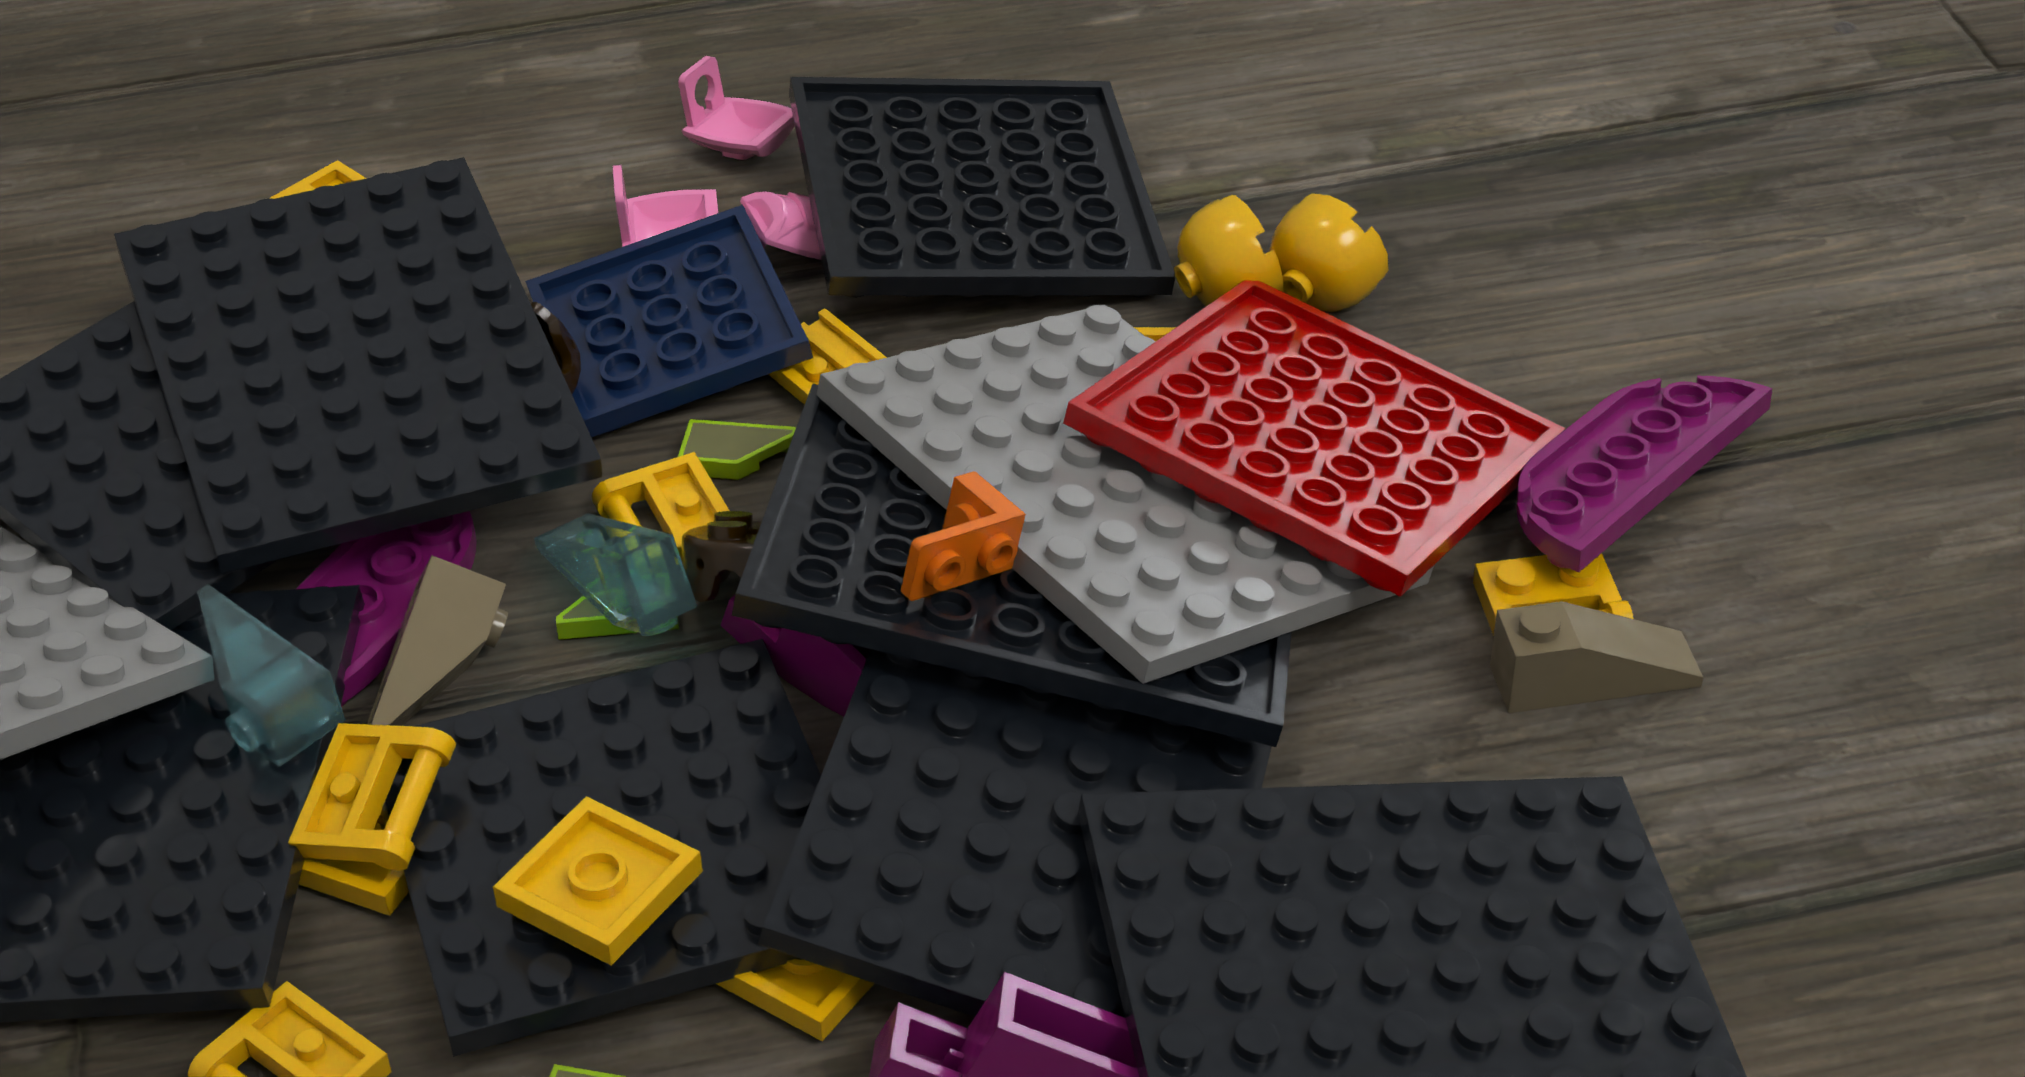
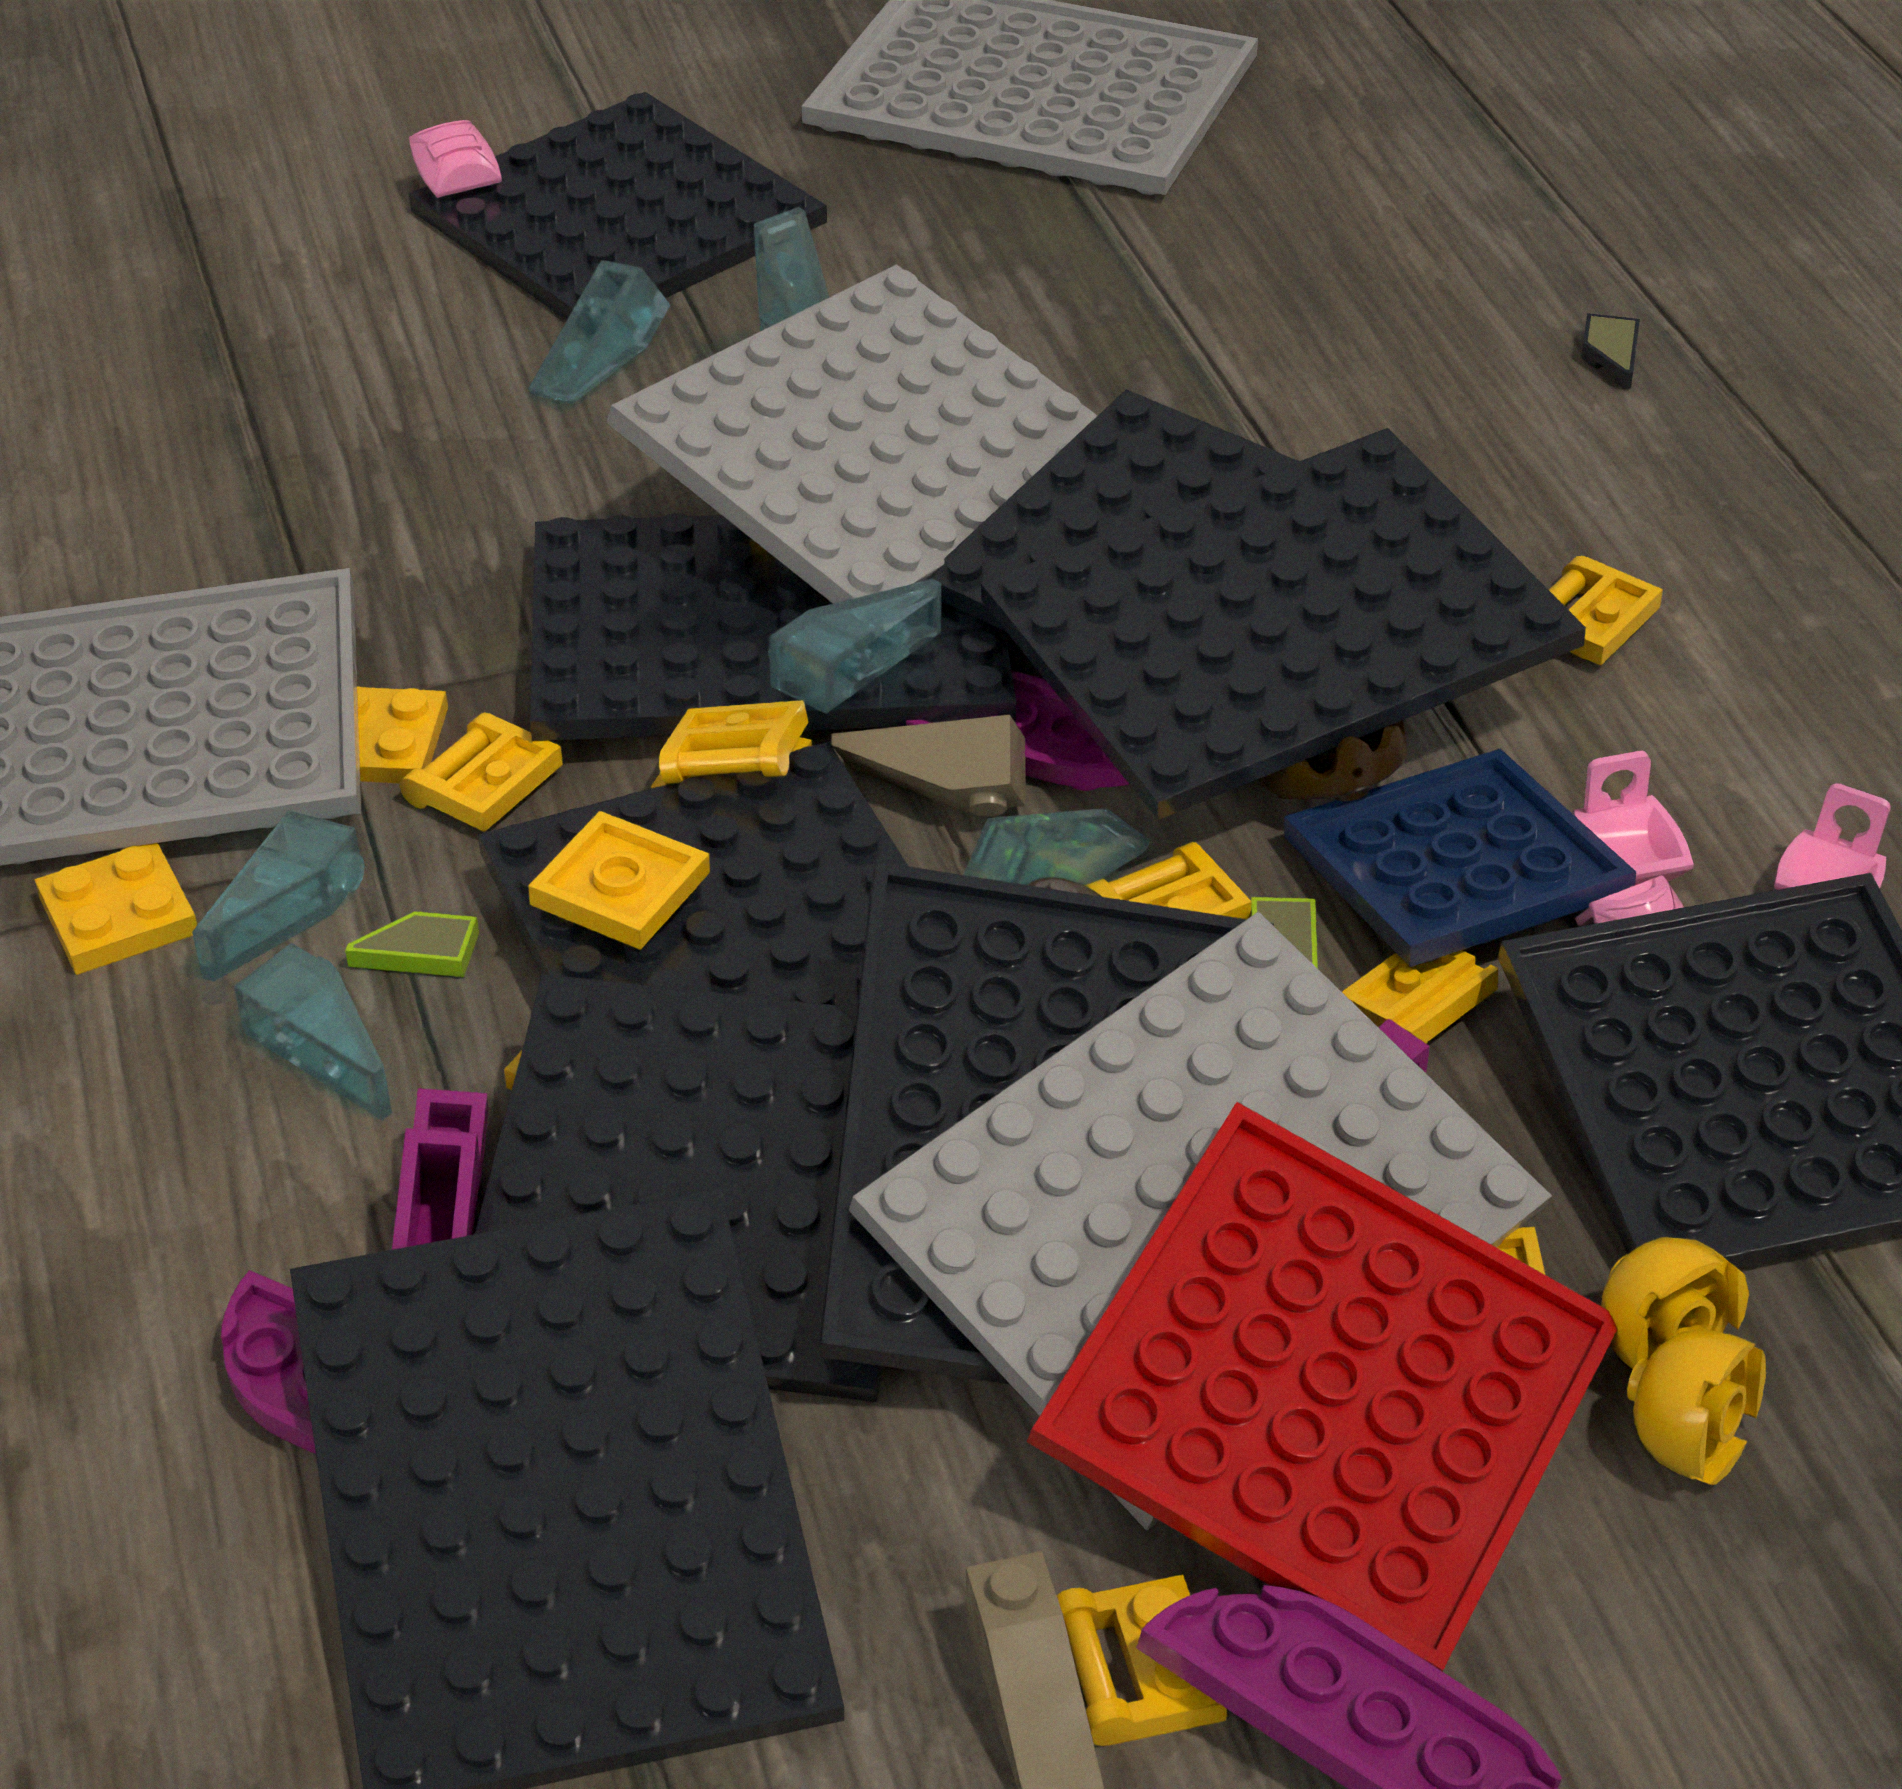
camera: 85 degrees right, 0 degrees up
(975, 541) = (987, 1046): orange bracket -> none

